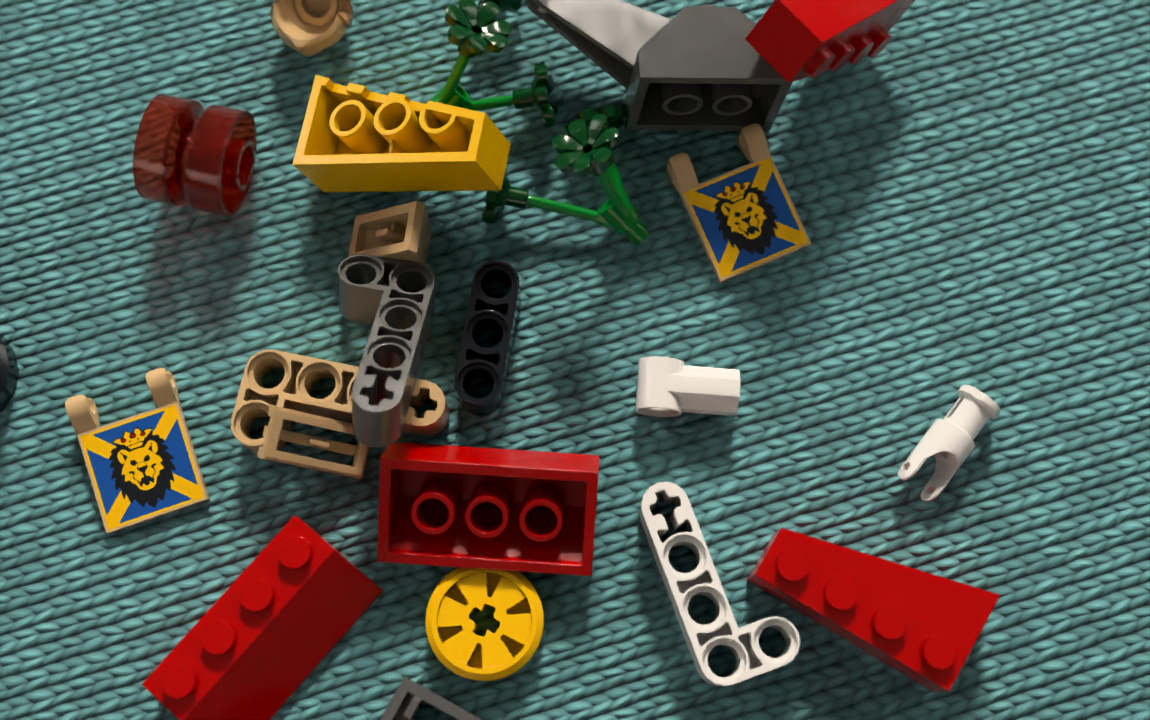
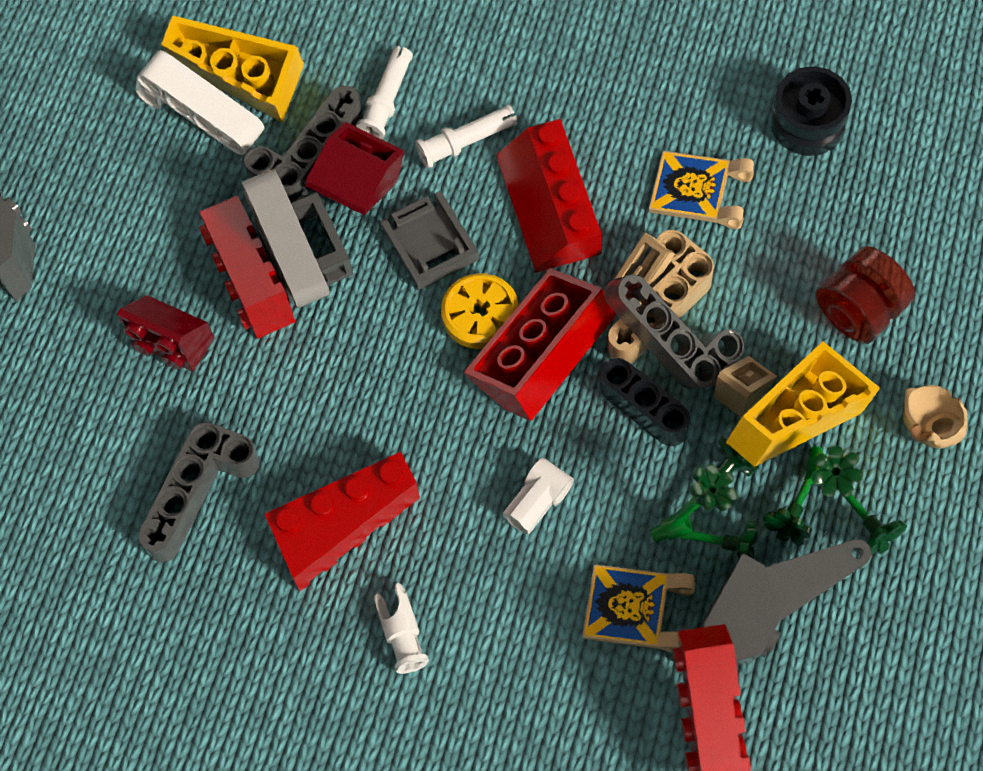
camera: 130 degrees right, 10 degrees down
(705, 581) = (417, 435): white beam -> none

